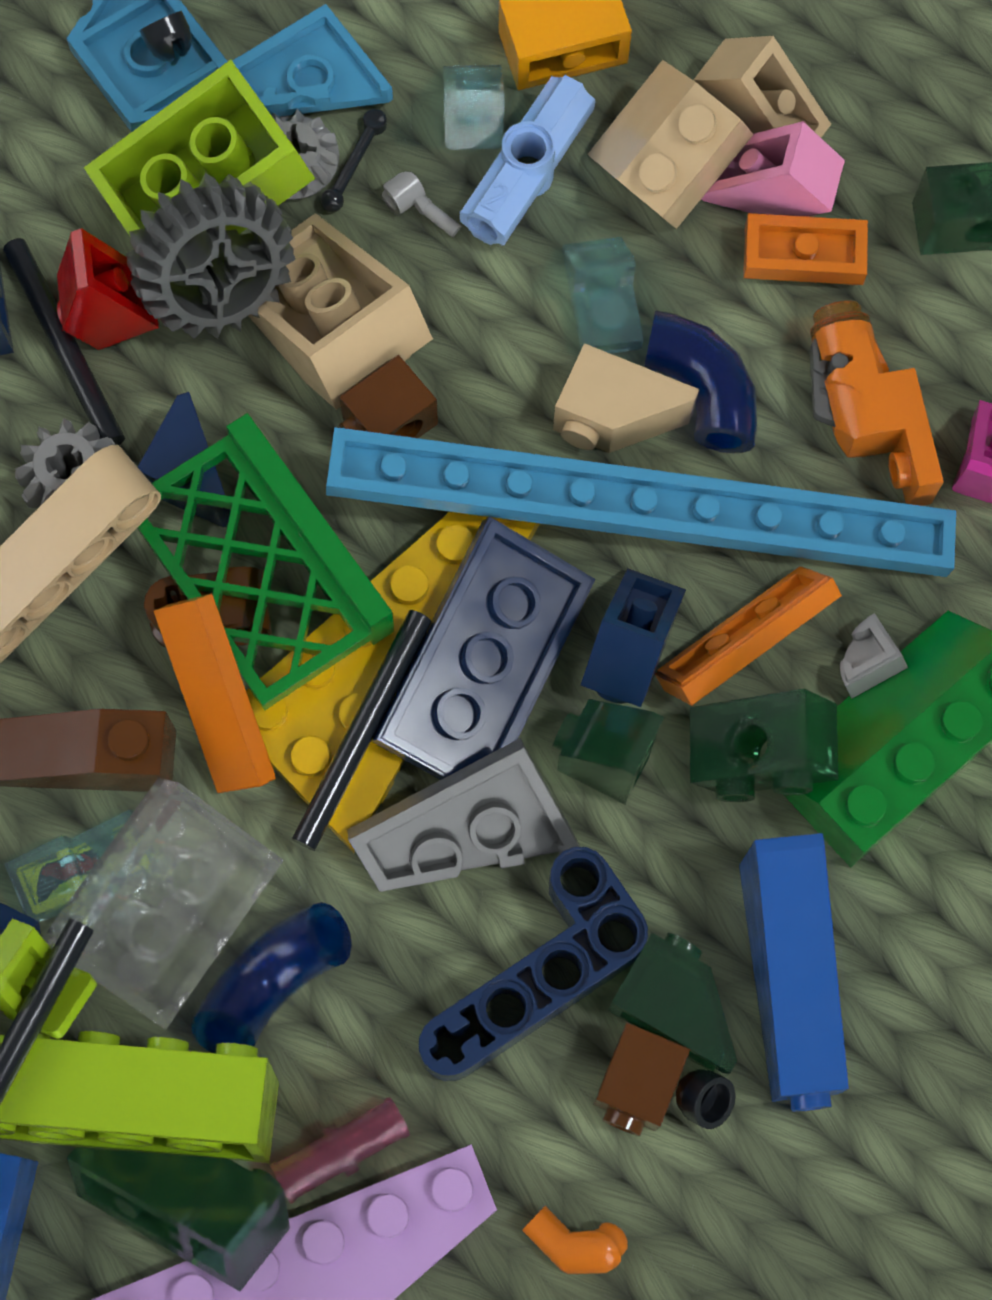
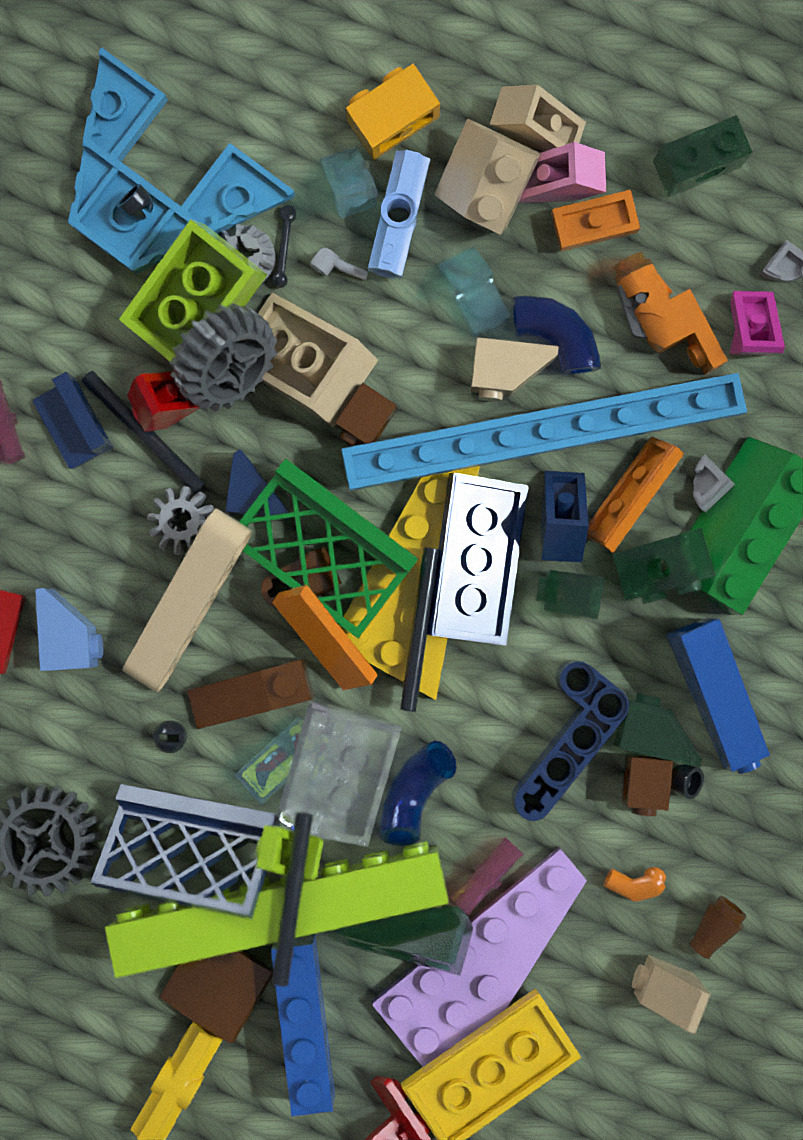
camera: 10 degrees left, 15 degrees up
(466, 821) = (504, 658): wing -> none

